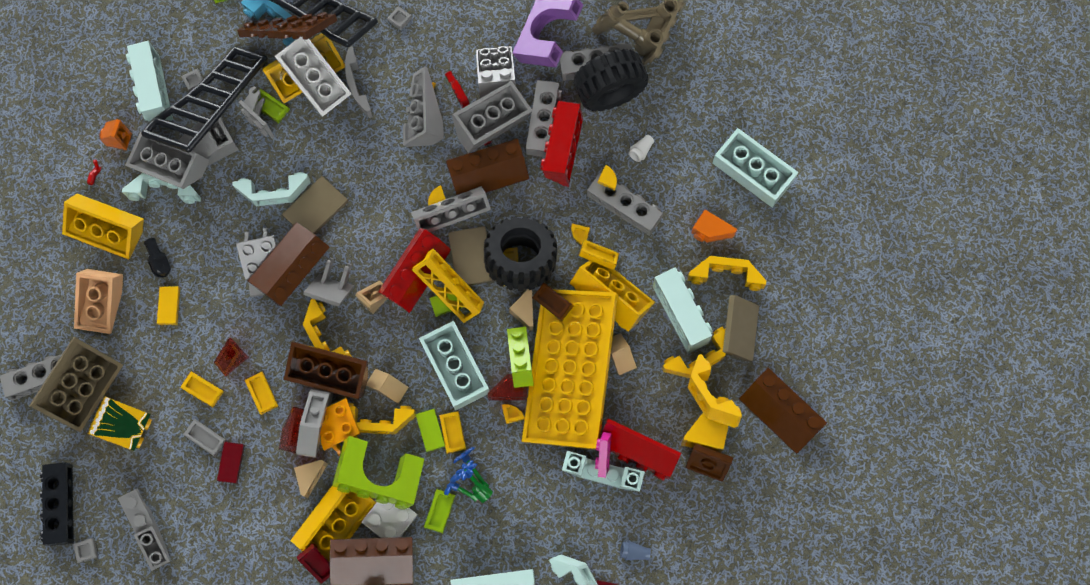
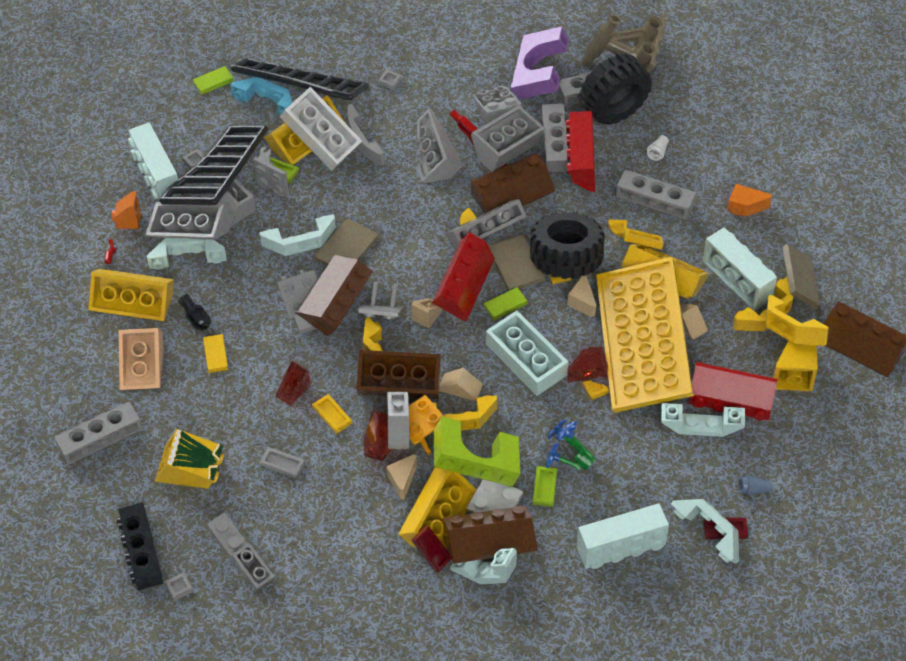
camera: 15 degrees left, 20 degrees down
(76, 385) = (142, 427): dark tan slope -> none
(202, 389) = (268, 420): yellow tile -> none
(230, 462) = (315, 480): dark red tile -> none
(291, 27) = (285, 90): reddish brown wing -> none
(430, 430) = (515, 417): lime tile -> none
(452, 285) = (506, 276): yellow fence -> none
(452, 432) = (538, 415): yellow tile -> none
(520, 357) = (592, 331): lime brick -> none
(552, 301) = (610, 280): reddish brown tile -> none
(602, 462) = (700, 406): dark pink plate -> none
(608, 178) = (635, 171): yellow tile -> none
(709, 462) = (805, 391): reddish brown tile -> none
(753, 278) = (799, 234): yellow slope -> none
(755, 167) = (773, 144): light aqua brick -> none

